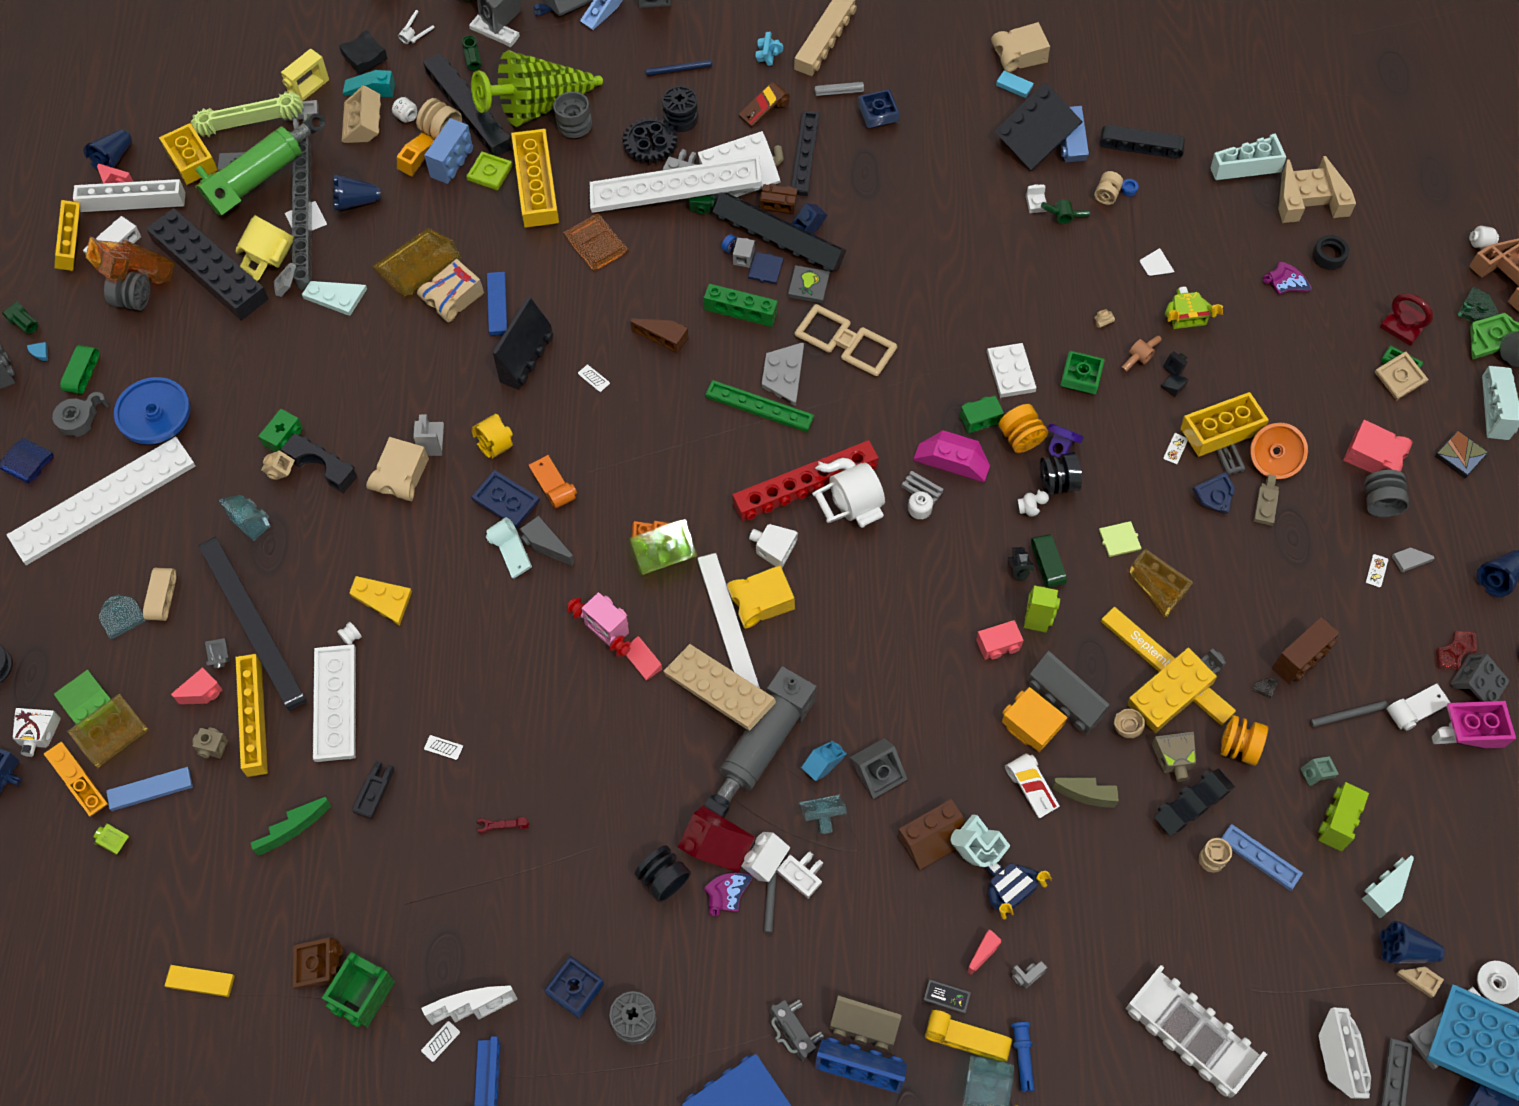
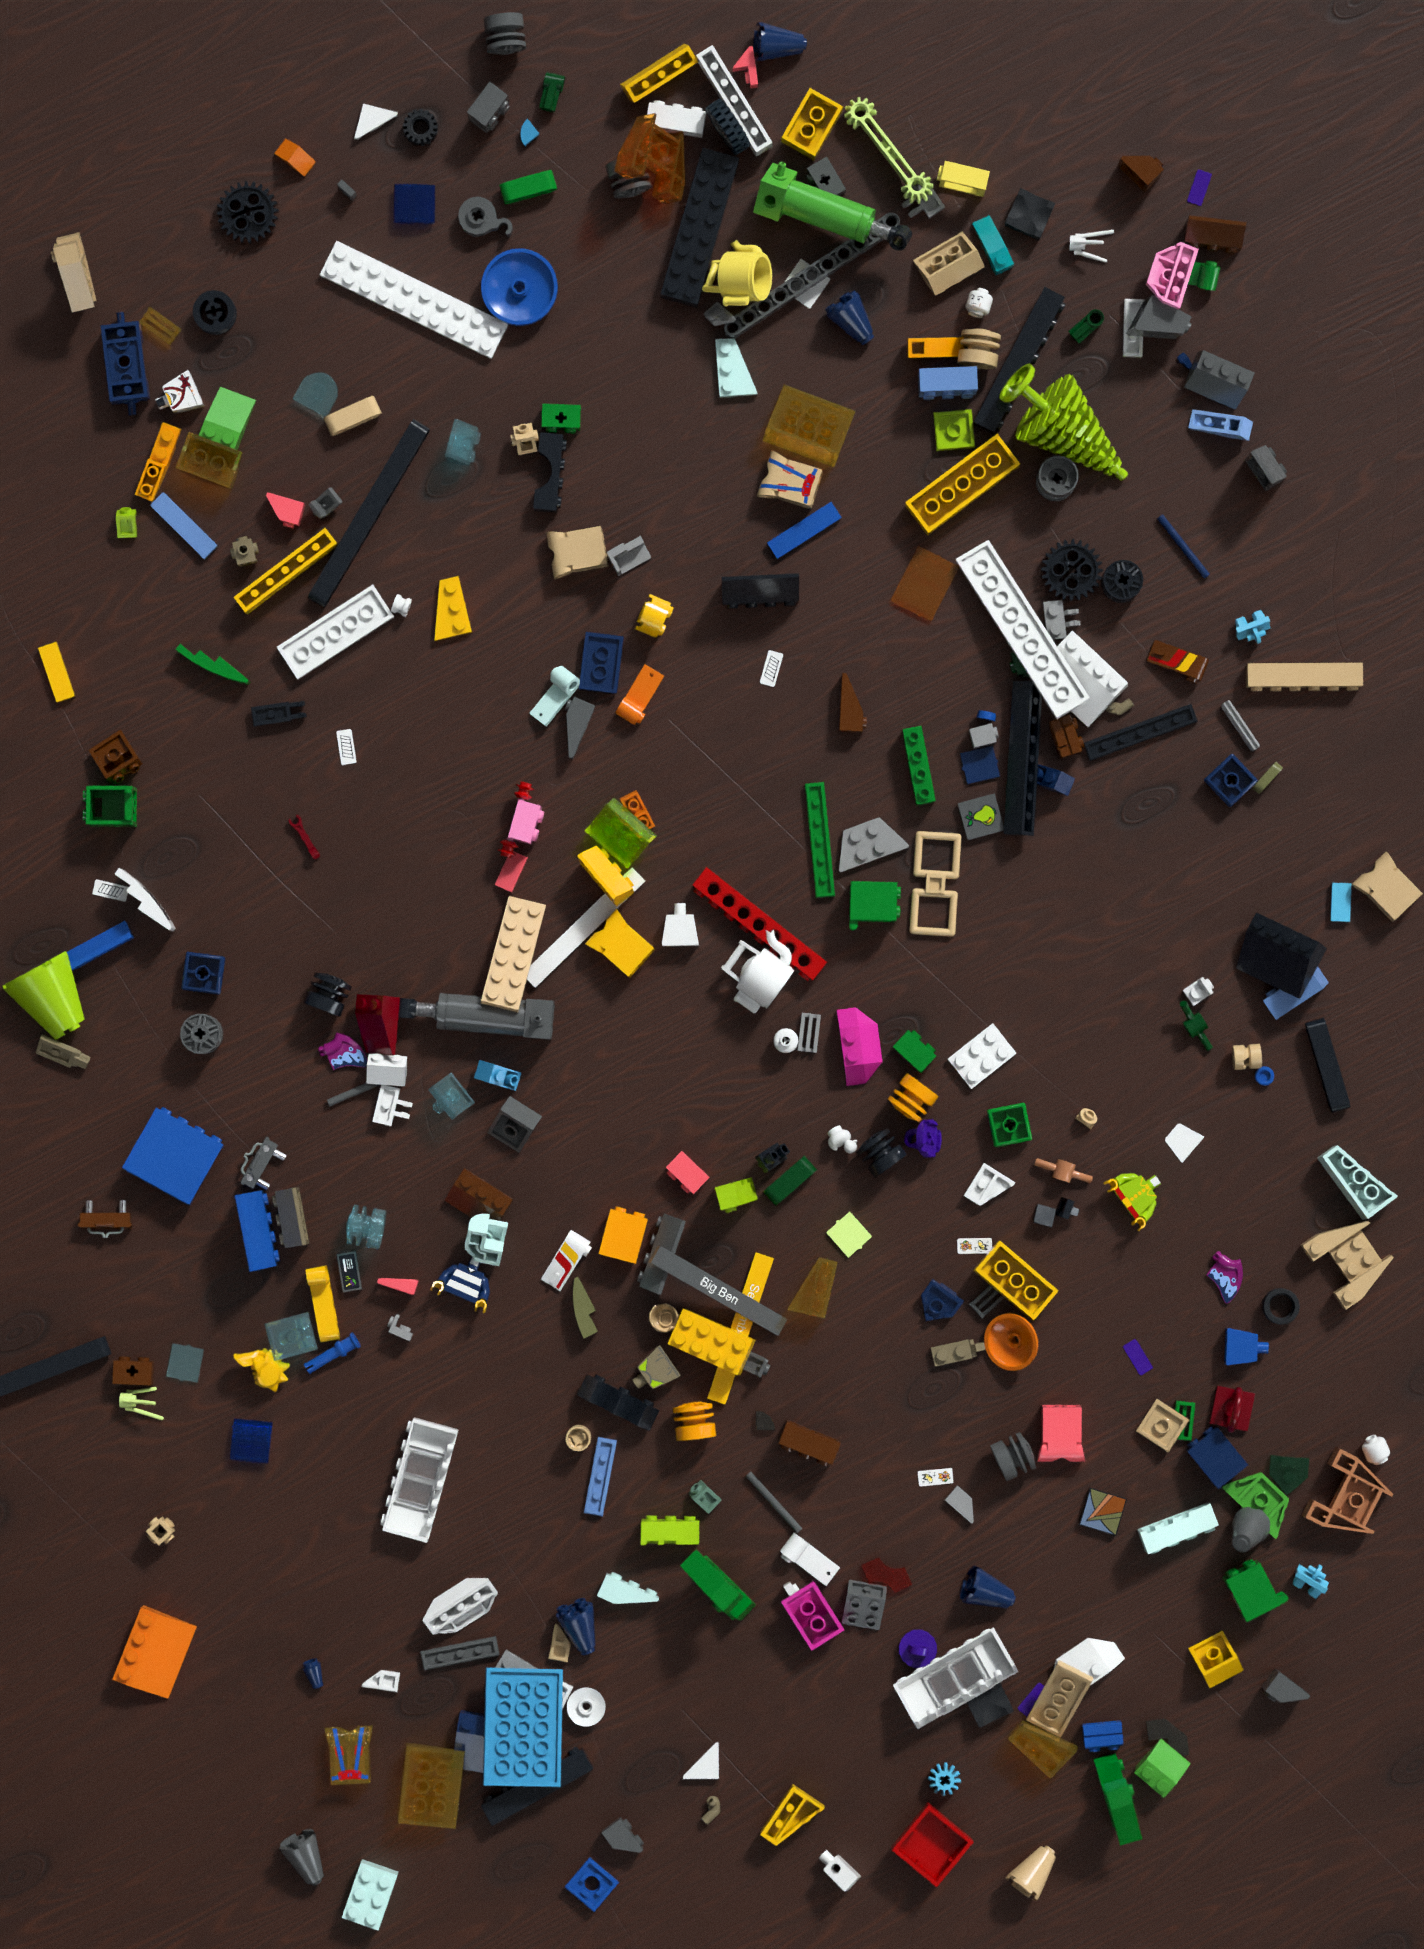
camera: 65 degrees right, 25 degrees up
(142, 201) = (728, 126): none -> black wheel
(692, 578) = (606, 874): none -> yellow slope
(836, 383) = (873, 902): none -> green container
(889, 83) = (1268, 776): none -> olive beam
(911, 951) = (366, 1226): none -> clear light blue wheel
(1125, 658) = (718, 1290): none -> dark grey tile
(1126, 413) = (987, 1185): none -> white wing
(1325, 372) = (1137, 1357): none -> dark purple sticker
(1354, 292) = (1242, 1347): none -> blue torso
(1421, 789) = (718, 1586): none -> green wedge
(1449, 345) = (1216, 1456): none -> dark blue slope

